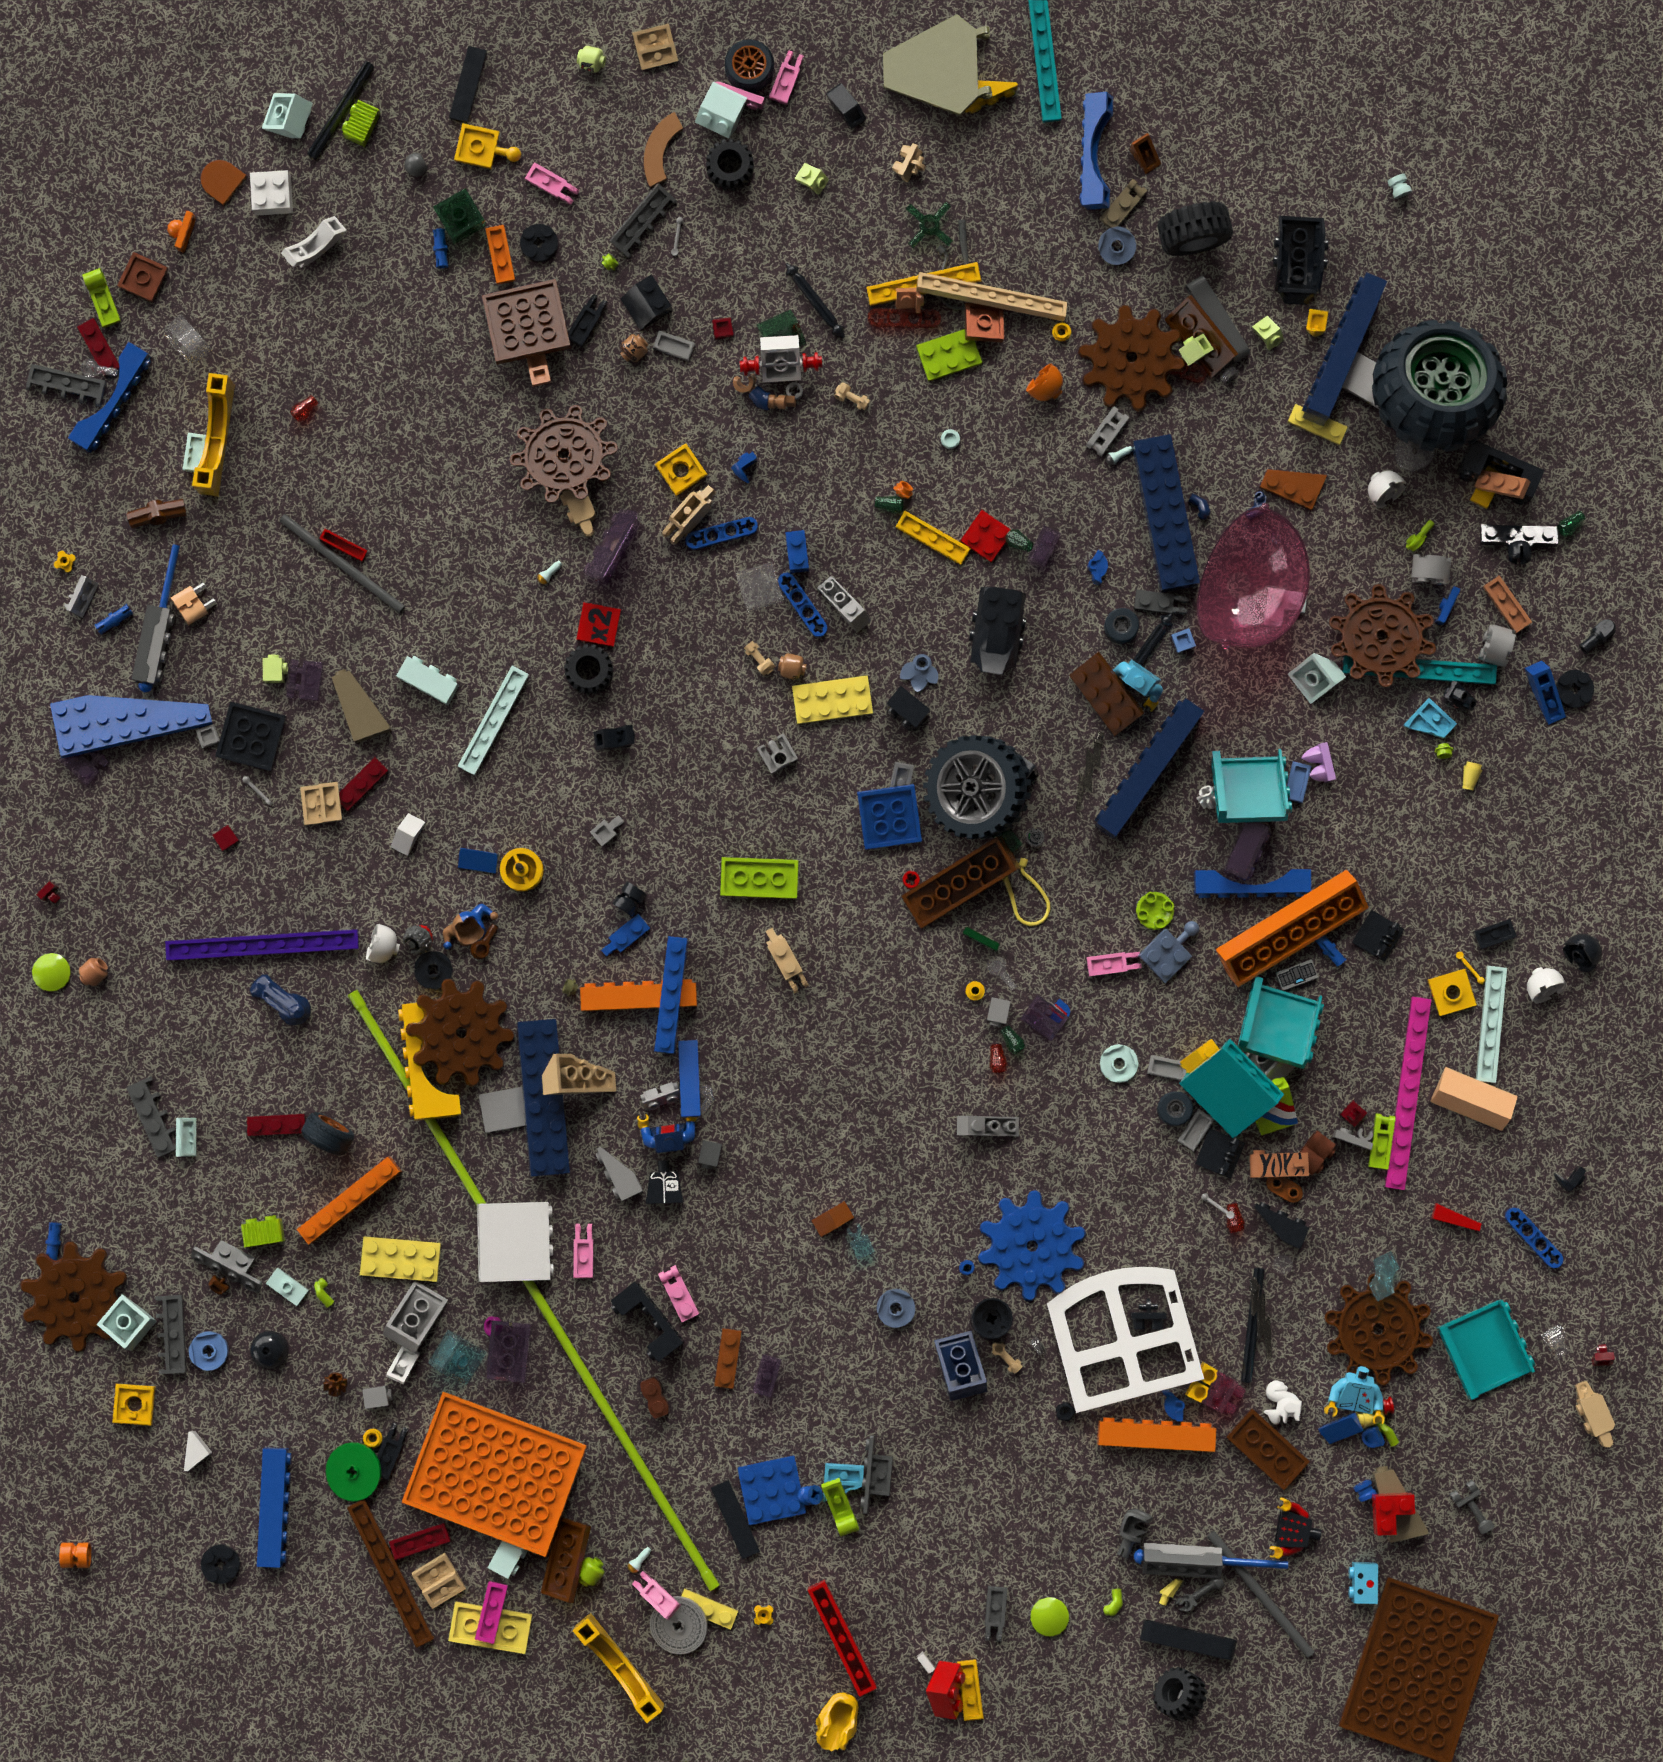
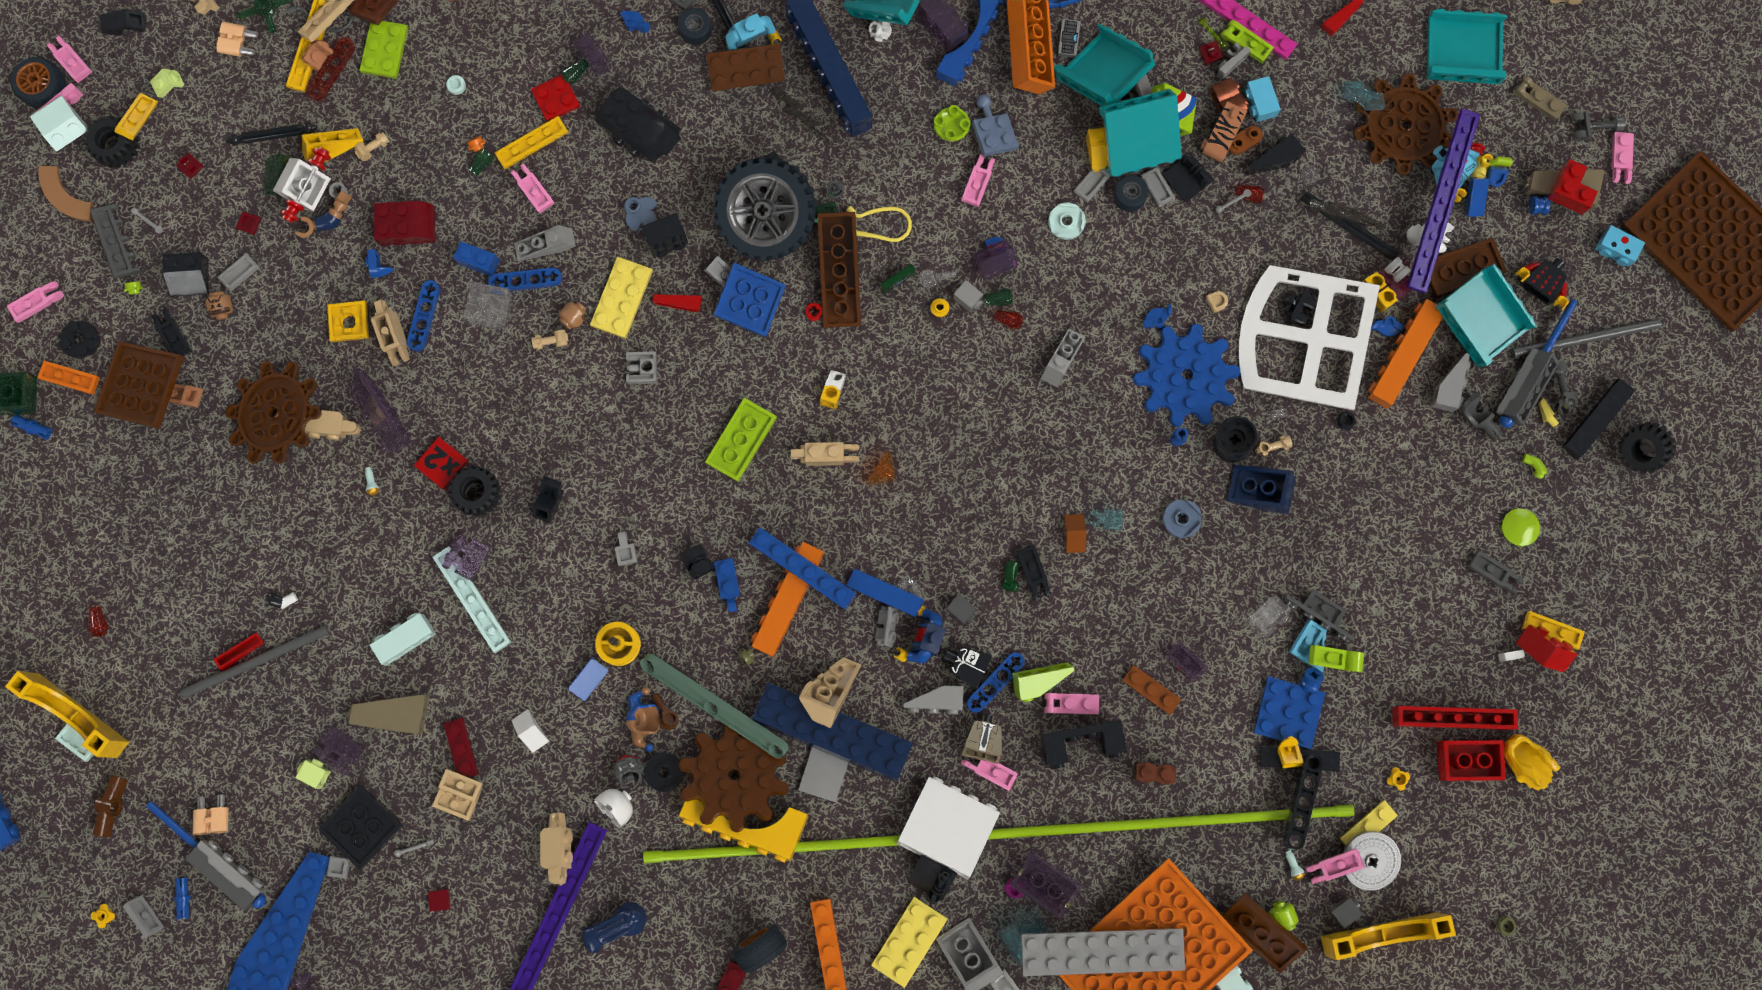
camera: 60 degrees left, 5 degrees down
(320, 914) = (556, 848): none -> tan hinge
(403, 554) = (281, 602): none -> arm
(463, 1251) = (932, 879): none -> black hinge
(476, 1428) = (1102, 952): none -> light grey plate
(511, 993) = (724, 712): none -> sand green beam
(527, 701) = (471, 560): none -> clear purple plate
(605, 1233) = (984, 741): none -> dark tan torso
(622, 1624) = (1345, 912): none -> dark grey brick
(661, 1221) = (997, 684): none -> blue beam
(681, 1253) = (1037, 681): none -> slope
(706, 1539) = (1310, 795): none -> black beam
(734, 1507) = (1290, 753): none -> yellow plate
(746, 245) = (189, 165): none -> dark red tile
(764, 174) = (136, 116): none -> yellow tile
(765, 1180) = (1010, 574): none -> dark green arm
(779, 1199) = (1033, 570): none -> black hinge
(796, 468) = (404, 223): none -> dark red brick
(797, 1020) = (883, 472): none -> clear orange slope
(811, 1670) = (1471, 760): none -> red brick
(833, 359) = (334, 141): none -> yellow slope
(846, 1428) = (1267, 617): none -> clear brick
(848, 935) = (832, 389): none -> leg
(858, 761) = (683, 302): none -> red piece
(884, 213) = (232, 39): none -> light nougat piece
(889, 565) = (533, 190): none -> bright pink hinge
(1071, 1192) = (1157, 317): none -> blue piece
(1115, 1239) = (1217, 301): none -> tan tile
(1143, 1490) = (1449, 391): none -> light grey slope
(1226, 1392) = (1400, 273): none -> light grey wheel
(1229, 1489) = (1485, 315): none -> panel
(1314, 1397) = (1443, 201): none -> dark purple plate
(1331, 1183) = (1262, 99): none -> medium azure brick
(1380, 1091) = (1203, 22): none -> clear neon green hinge
(1457, 1545) = (1622, 156): none -> bright pink hinge
(1472, 1442) = (1539, 98): none -> dark tan plate

